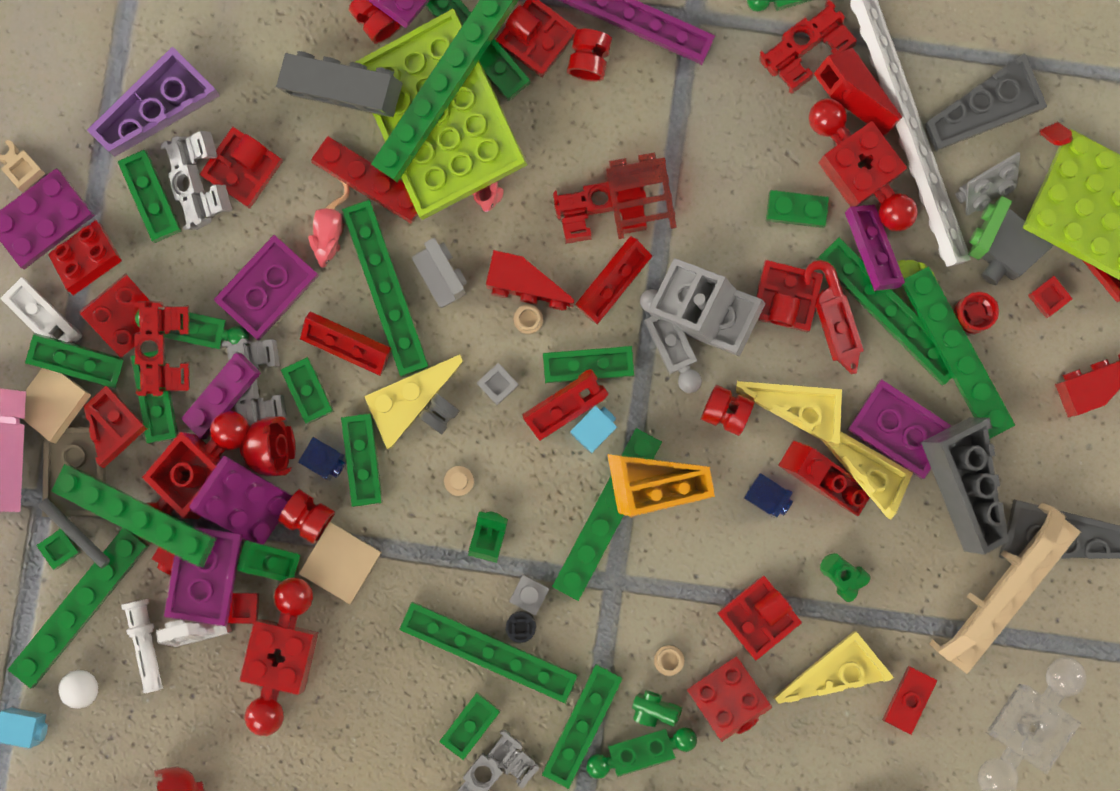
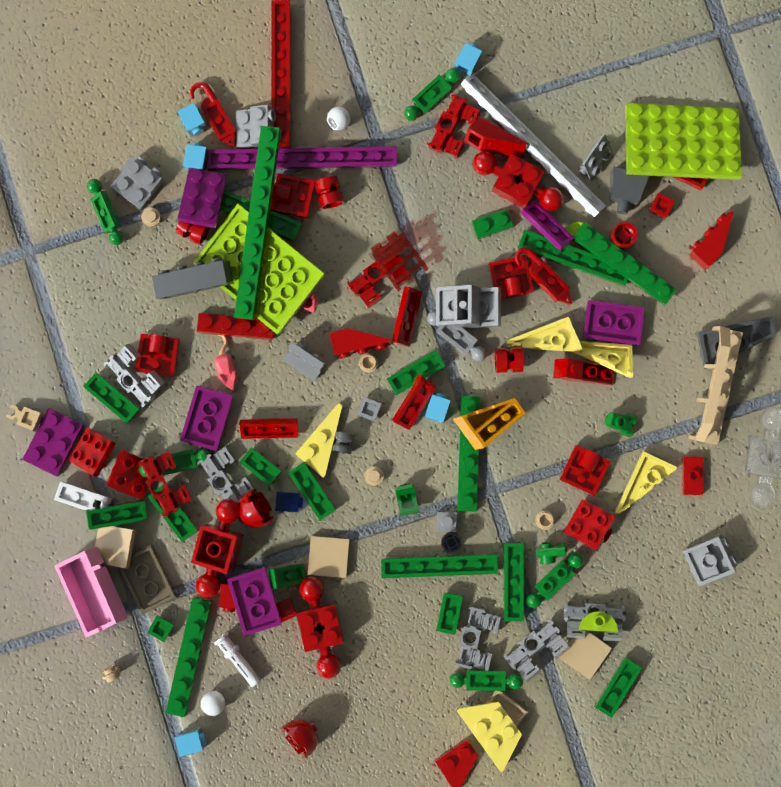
camera: 30 degrees left, 0 degrees up
(74, 533) = (166, 614): dark grey bar -> none
(111, 425) = (156, 542): red wing -> none
(134, 515) = (197, 586): green plate -> none
(153, 103) = (89, 339): medium lavender wedge -> none
(180, 633) = (257, 641): white wing -> none
(221, 394) = (211, 493): magenta plate -> none
(240, 501) = (255, 548): magenta plate -> none
(306, 516) = (296, 539): red wheel -> none
(385, 288) = (276, 385): green plate -> none
(769, 496) = (556, 398): clear blue bracket -> none
(968, 483) = (666, 336): dark grey wedge -> none
(993, 217) = (607, 176): bright green plate -> none
(996, 102) = (575, 109): dark grey wing -> none
(1057, 134) = (620, 109): red piece -> none

